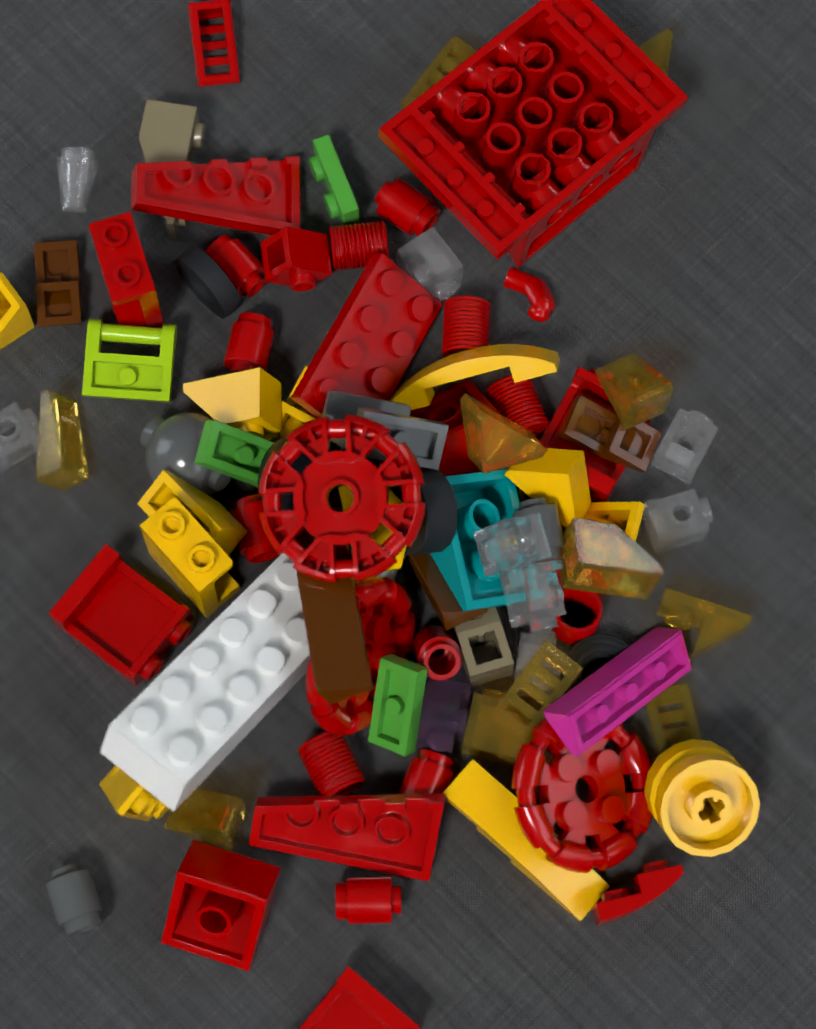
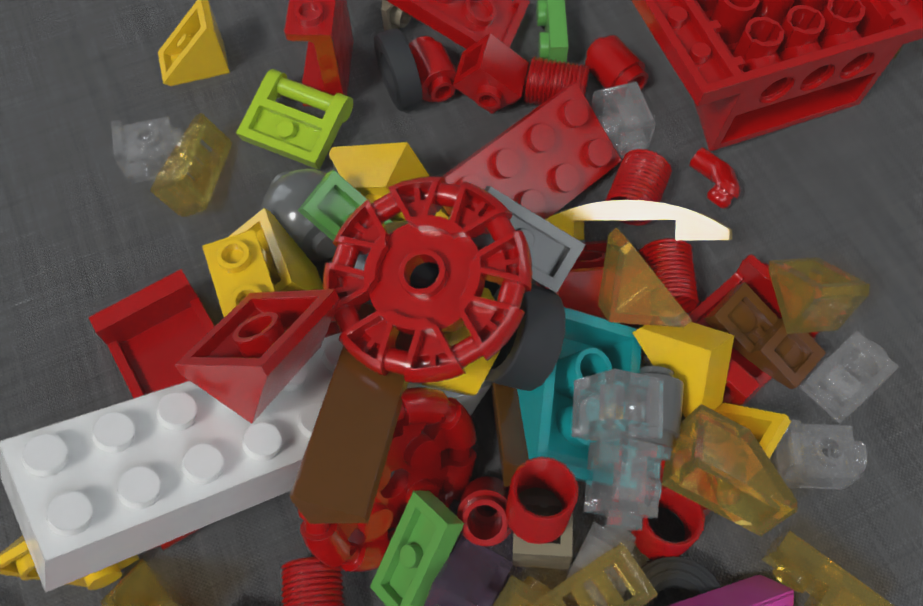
camera: 25 degrees right, 10 degrees down
(58, 283) = (264, 44): reddish brown slope -> none
(239, 592) = (259, 347): none -> red slope
(249, 343) = (421, 129): red brick -> none
(485, 612) = (552, 476): none -> red piece

